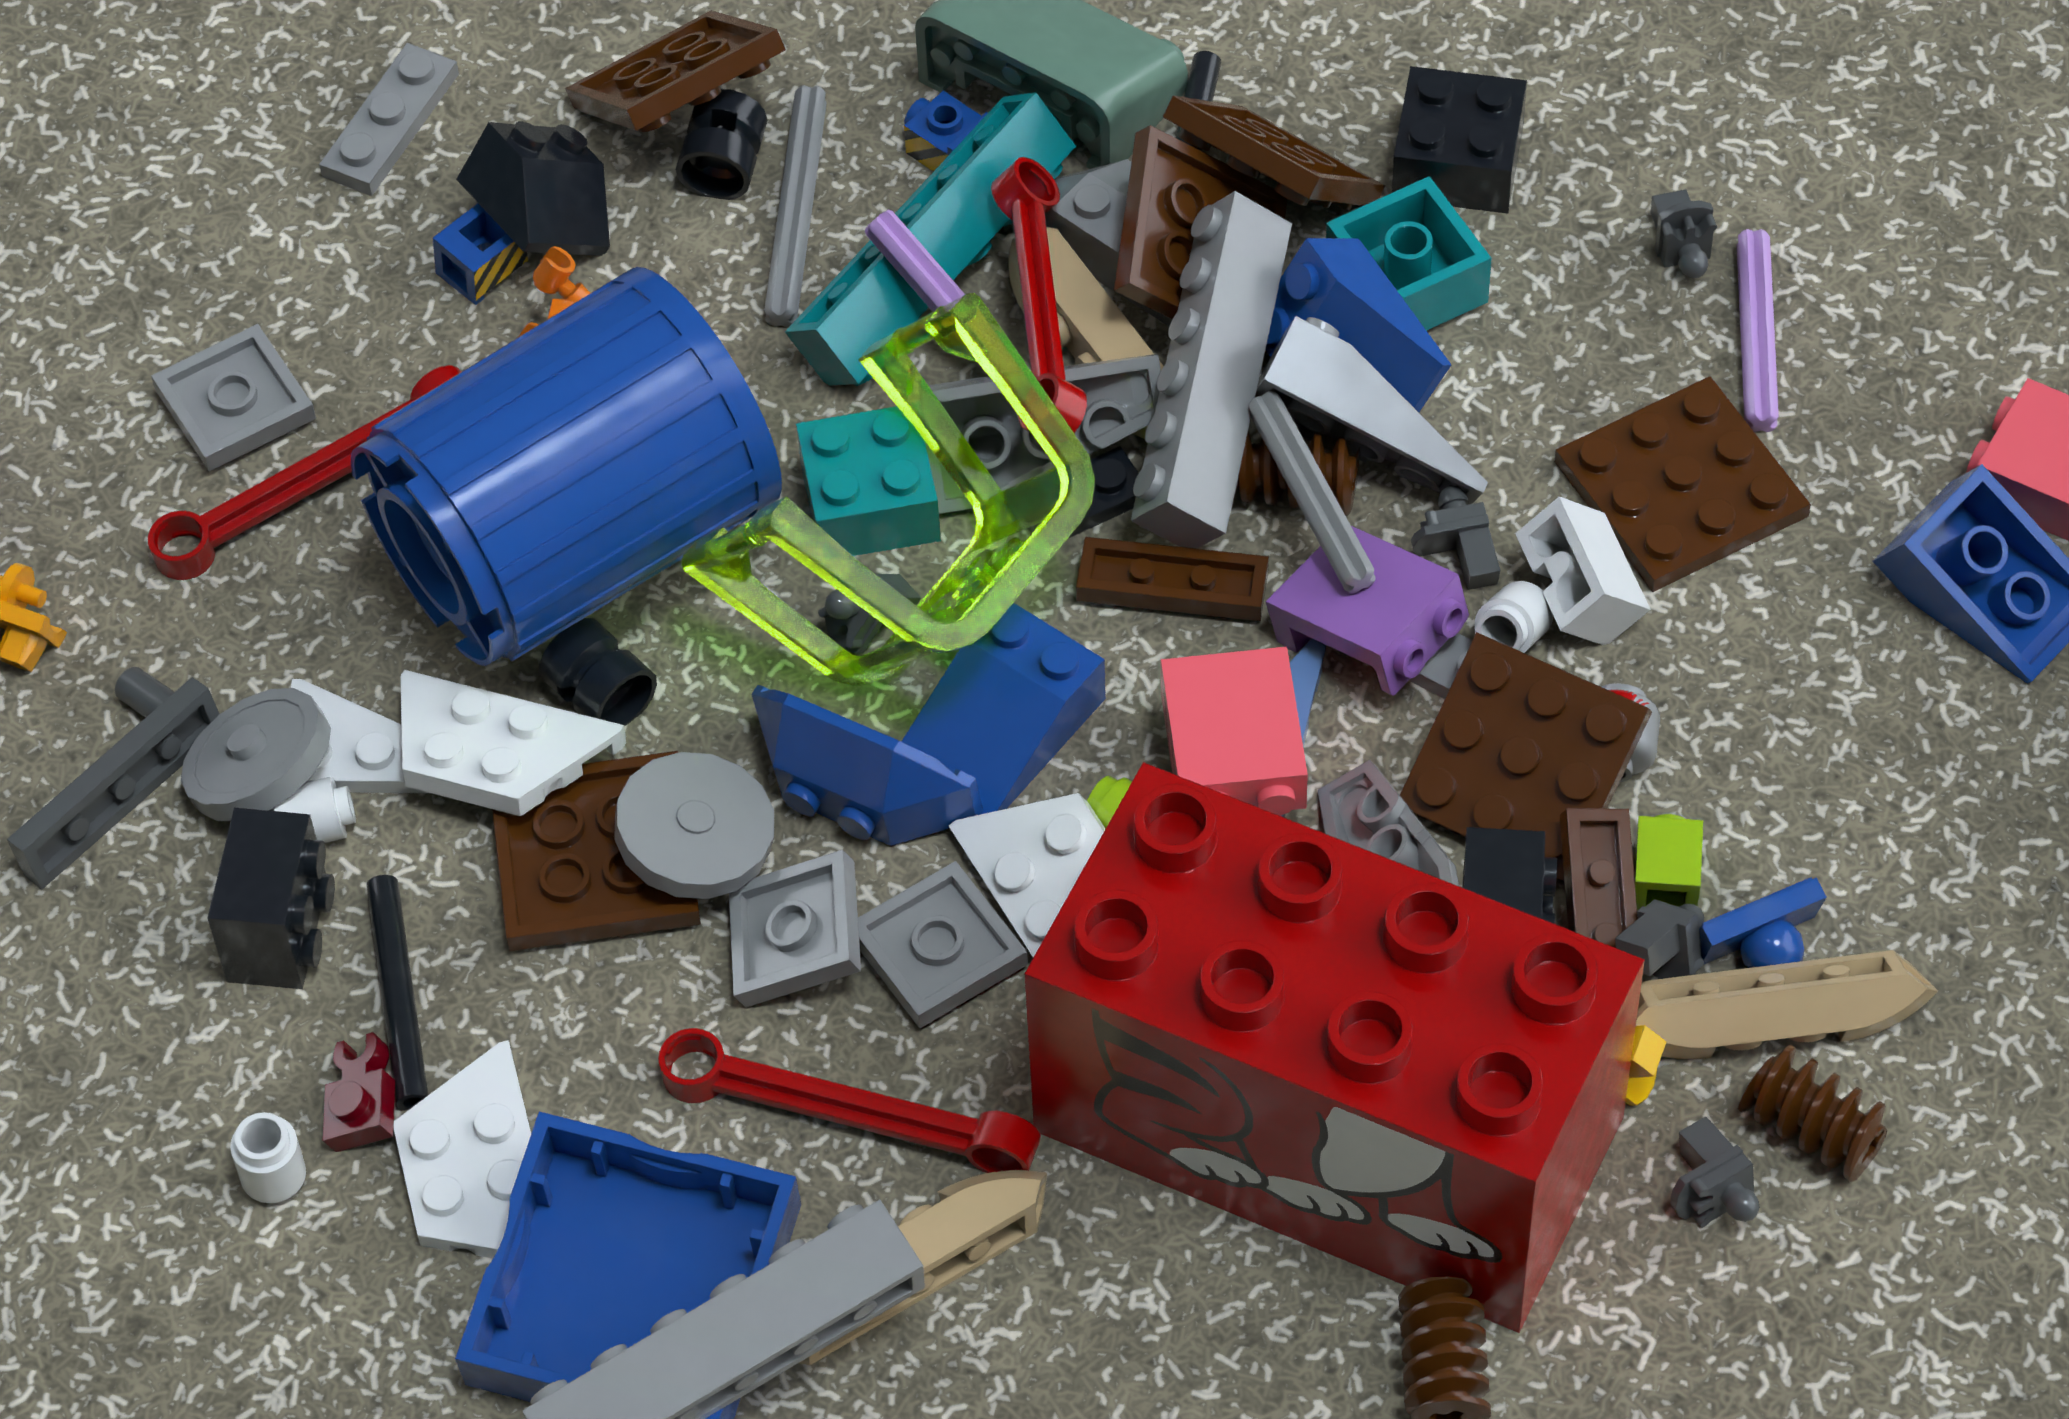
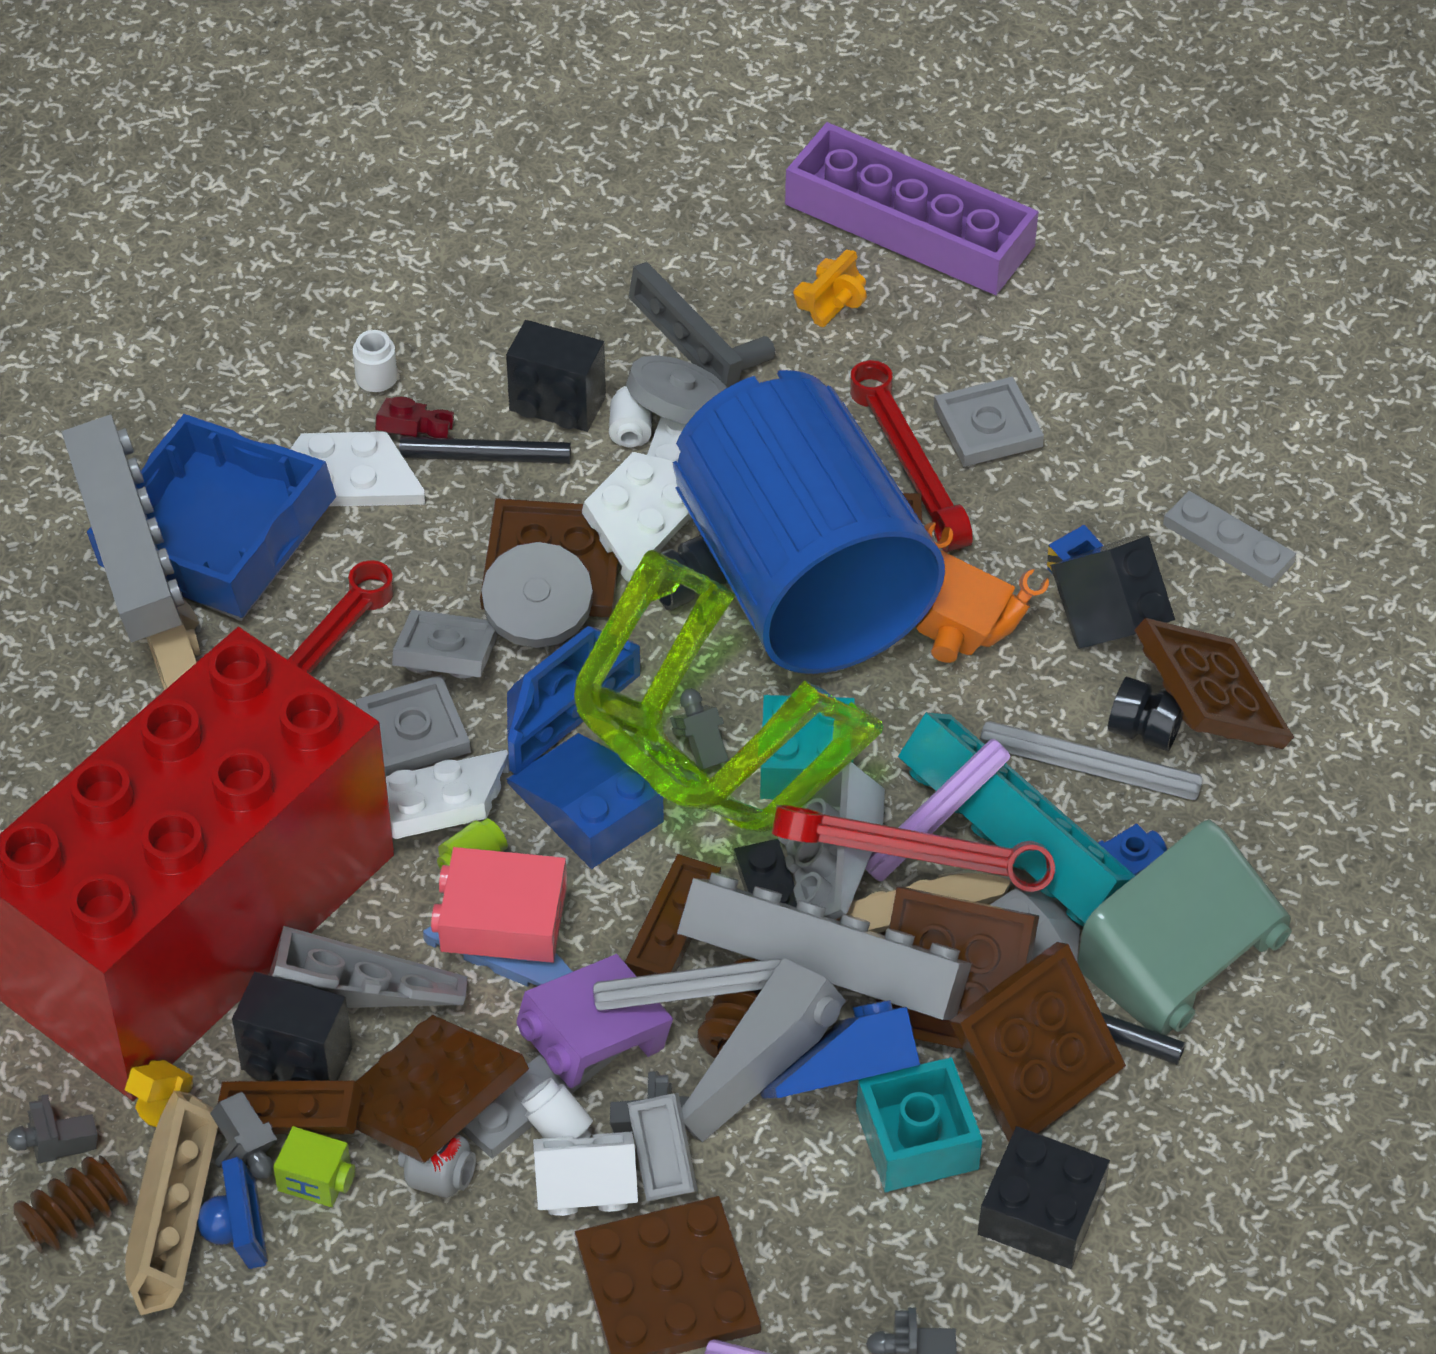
camera: 100 degrees right, 5 degrees down
(1509, 499) = (662, 1147): none -> light grey tile

